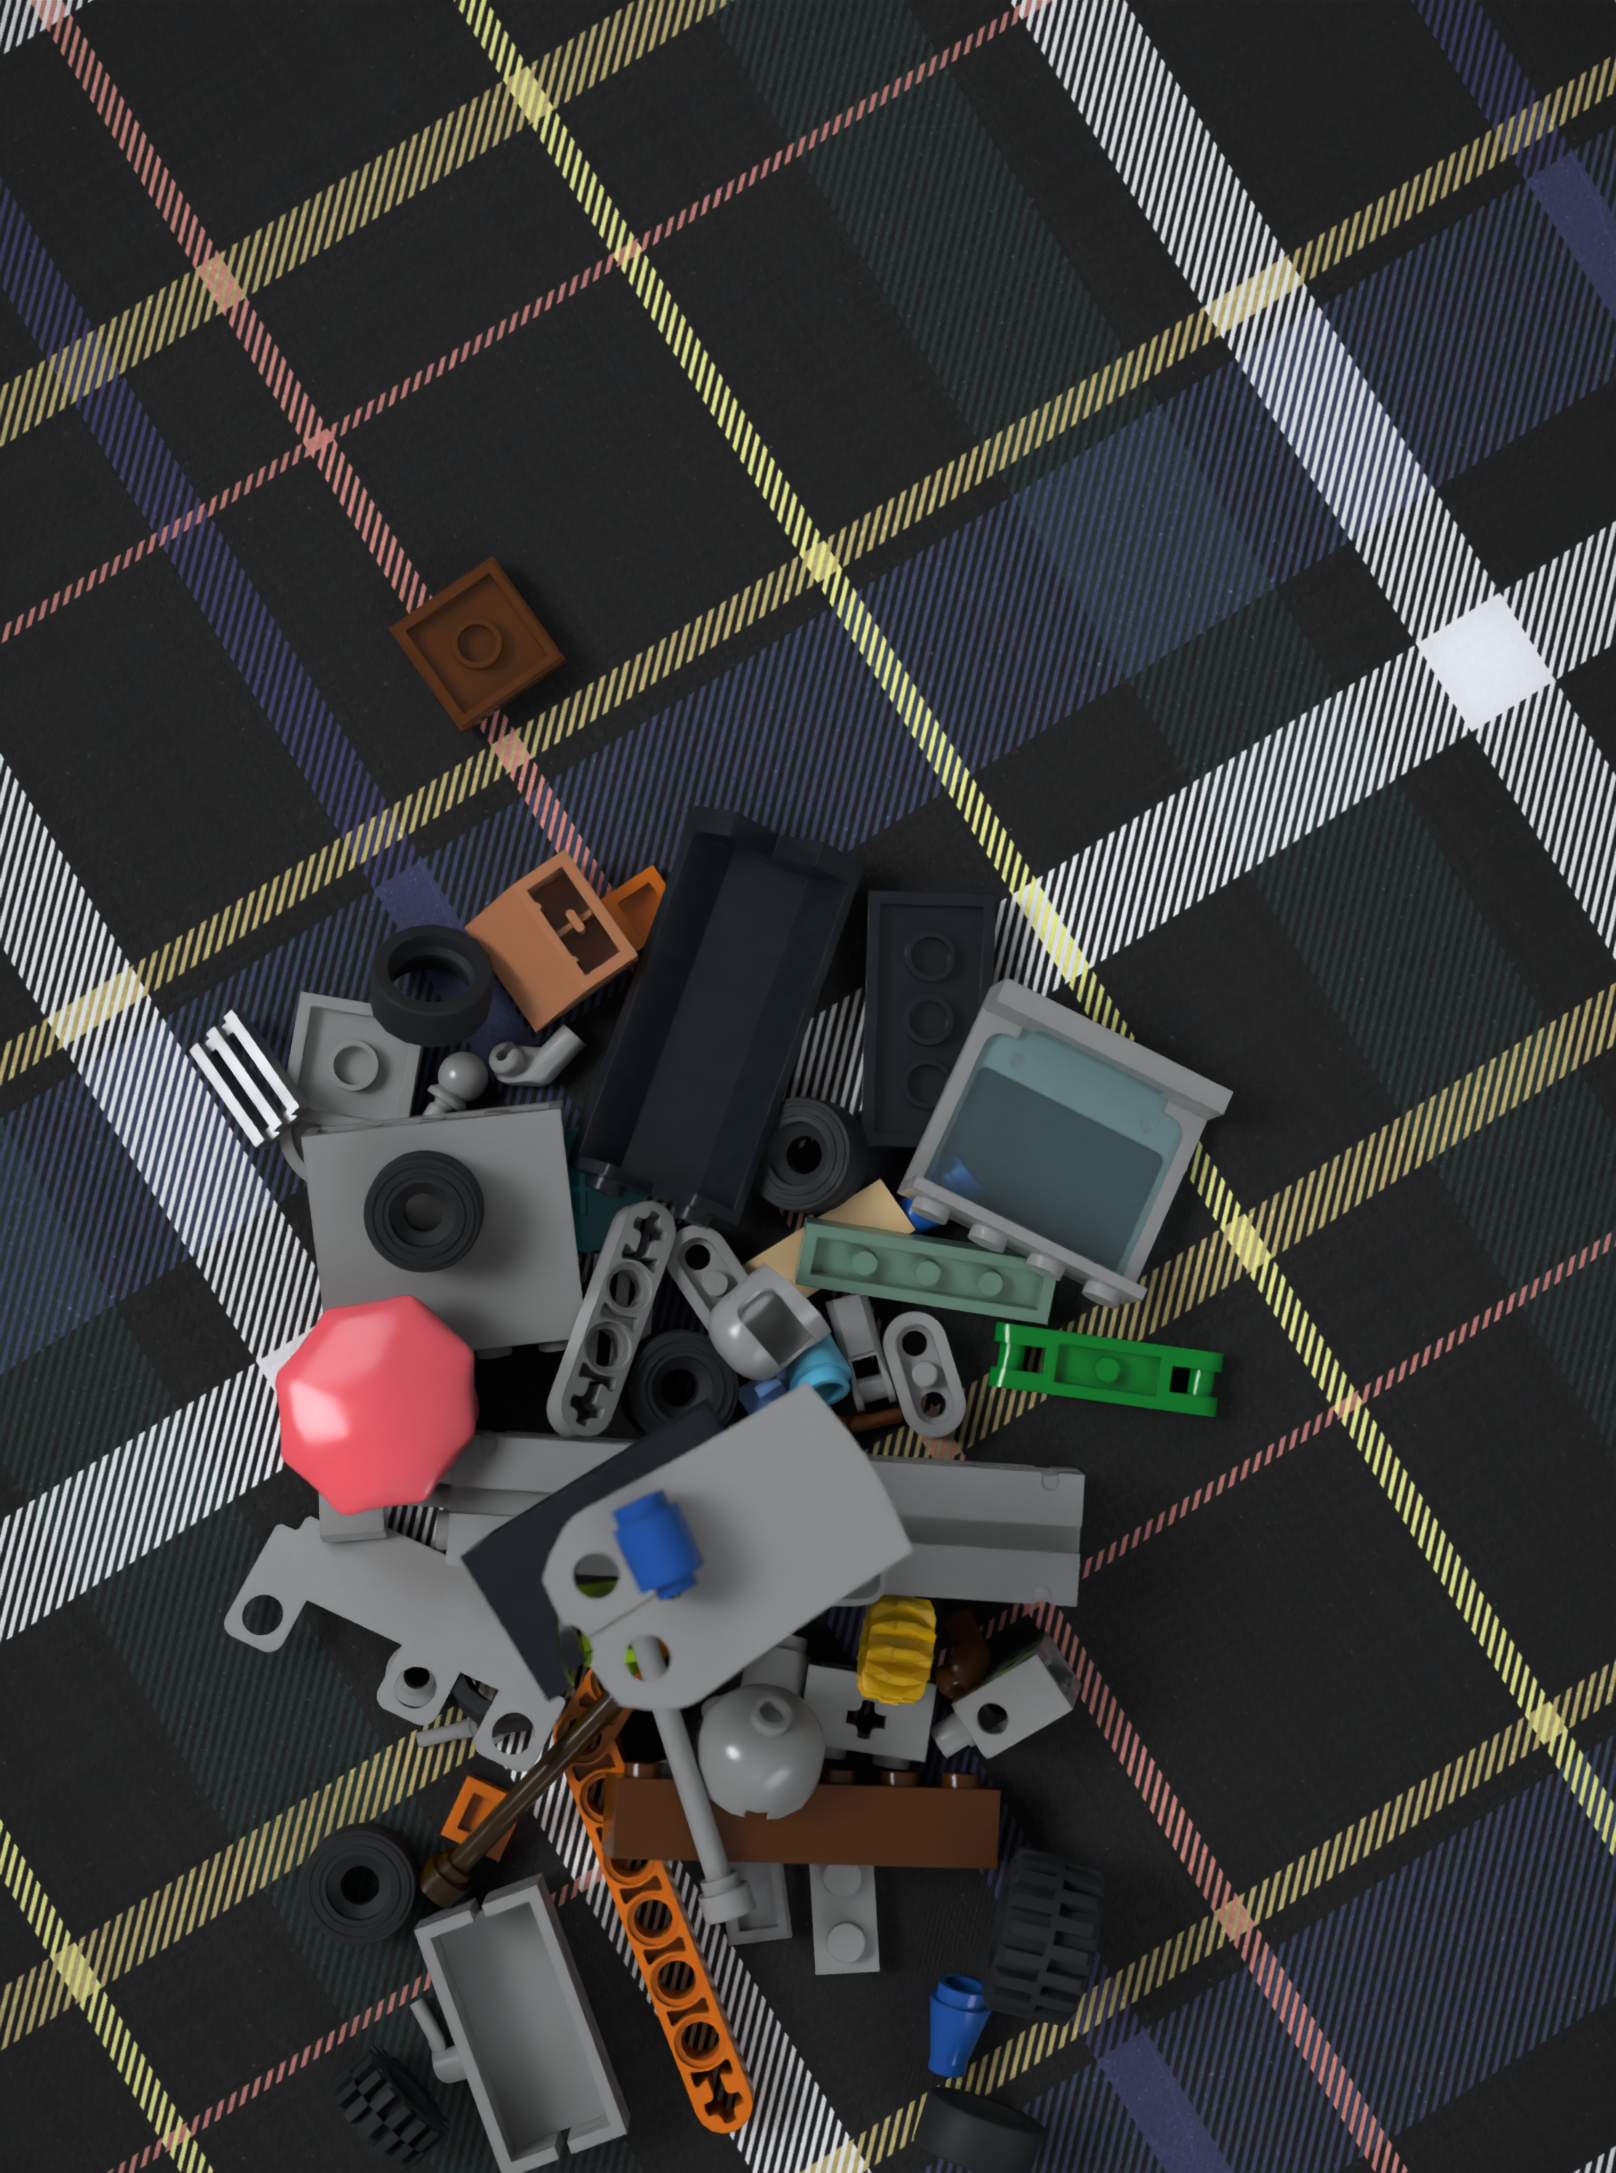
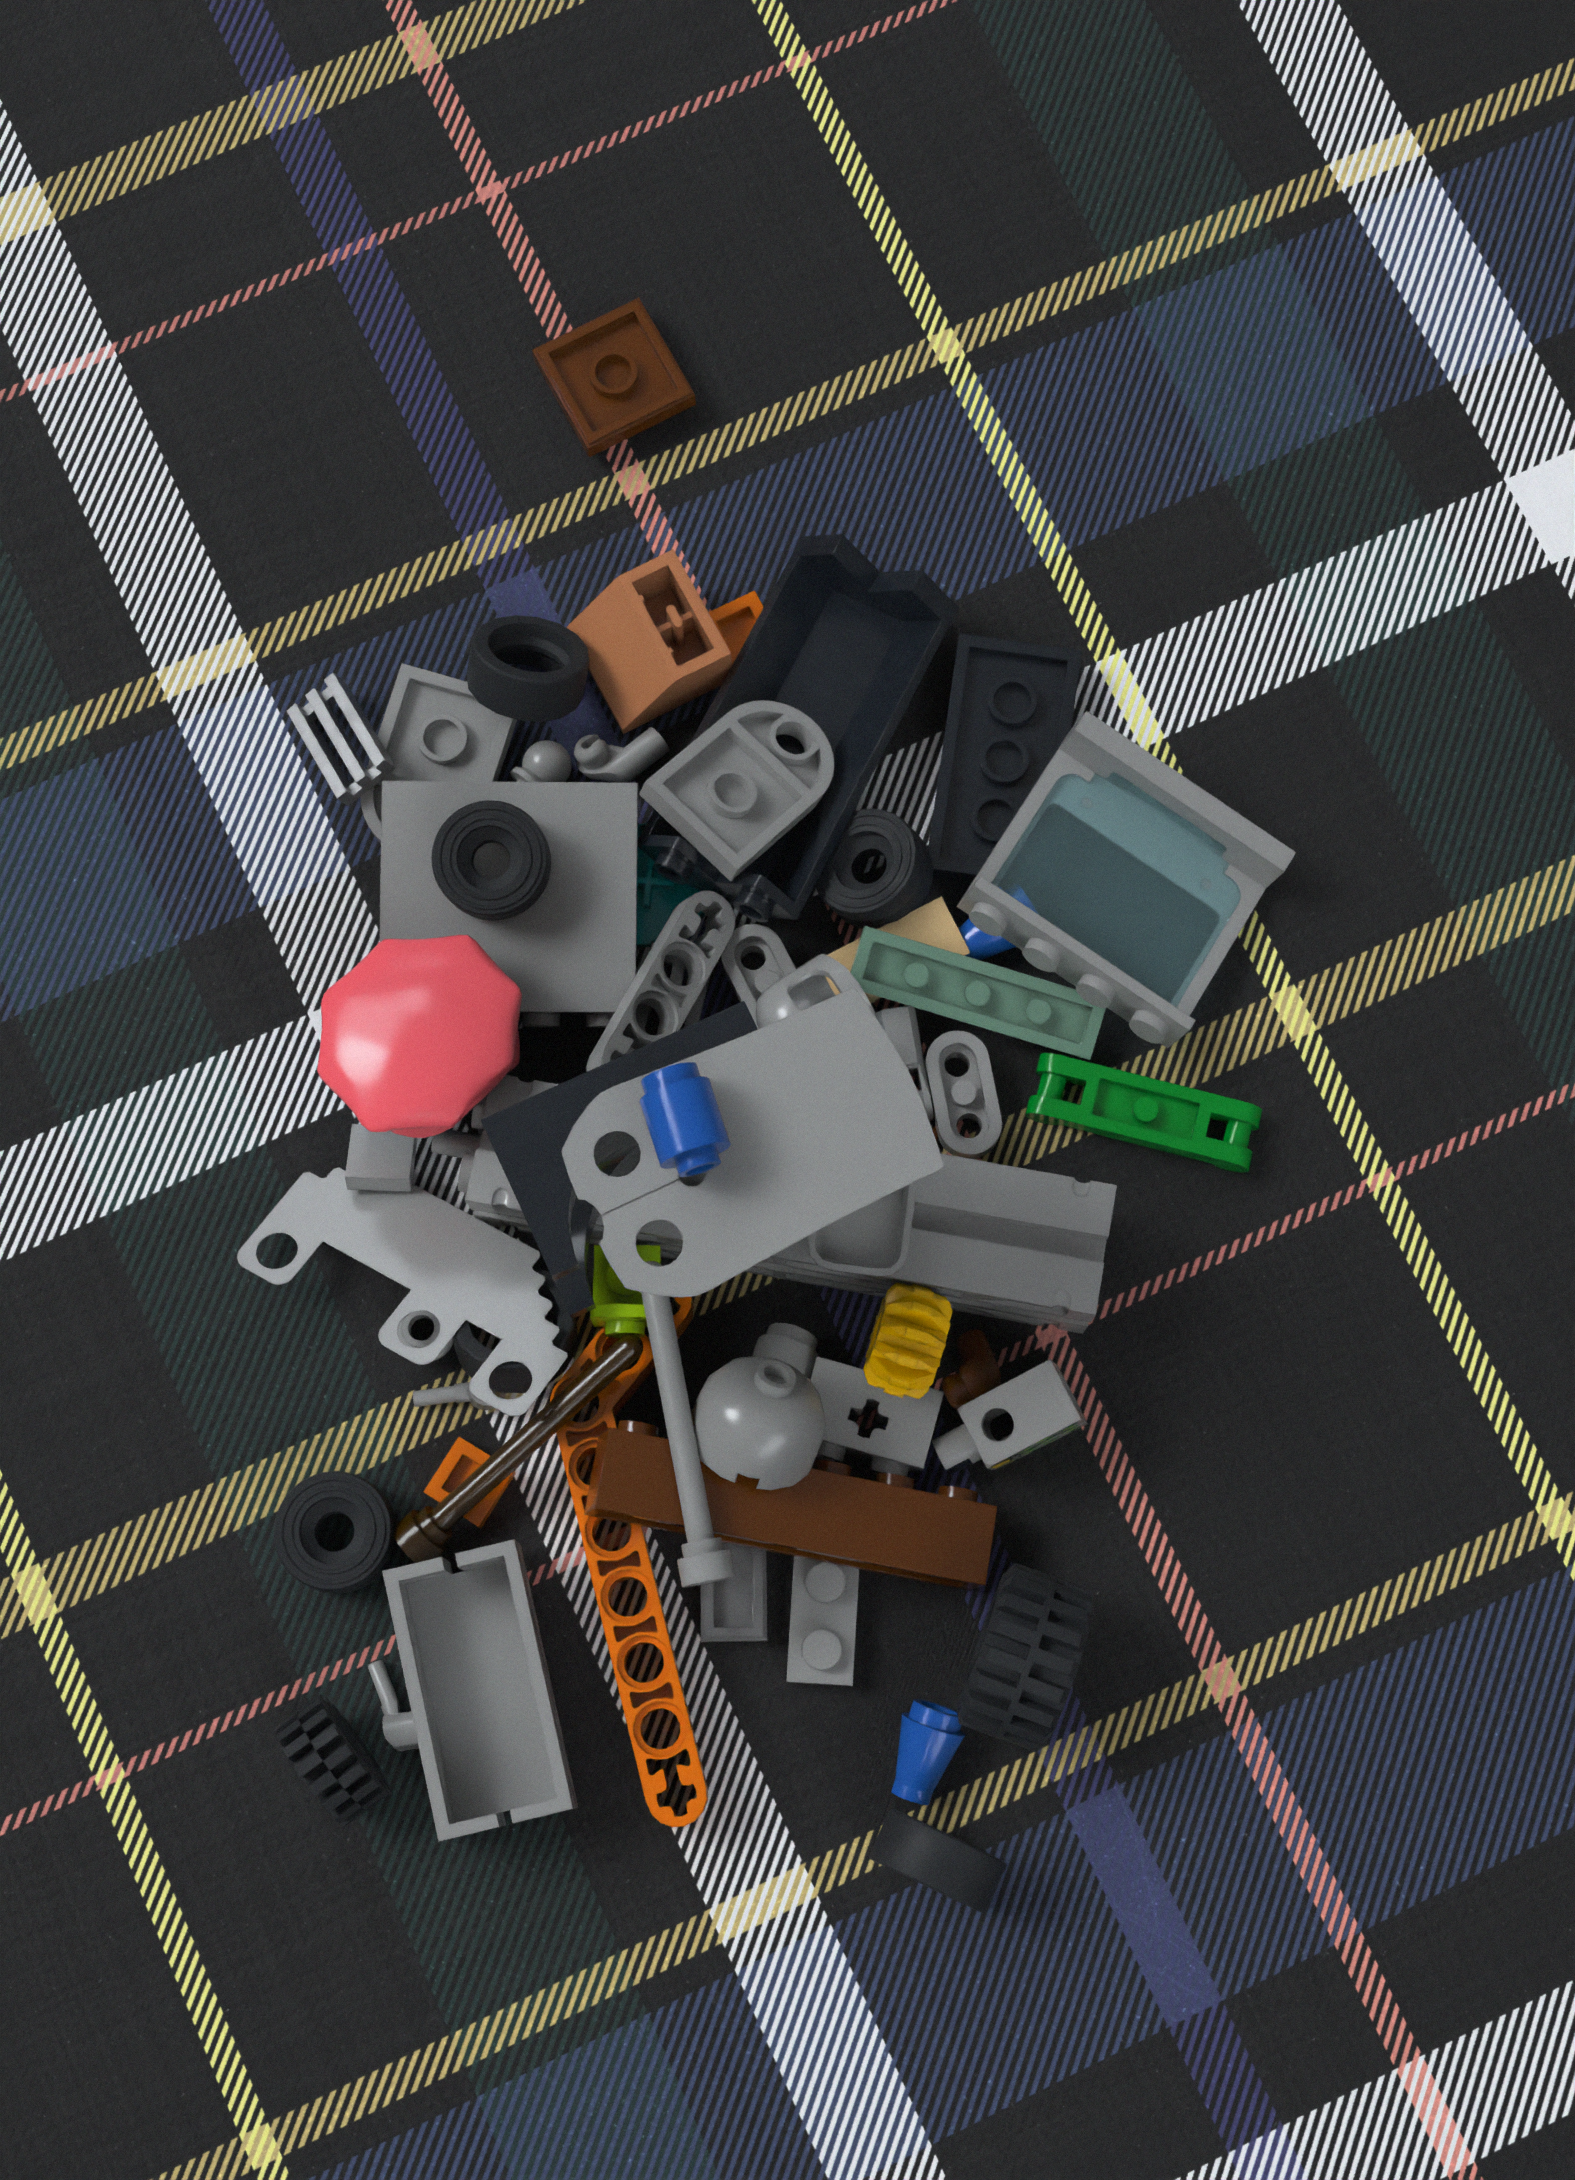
camera: 10 degrees right, 10 degrees down
(665, 1093) = (738, 788): none -> light grey plate

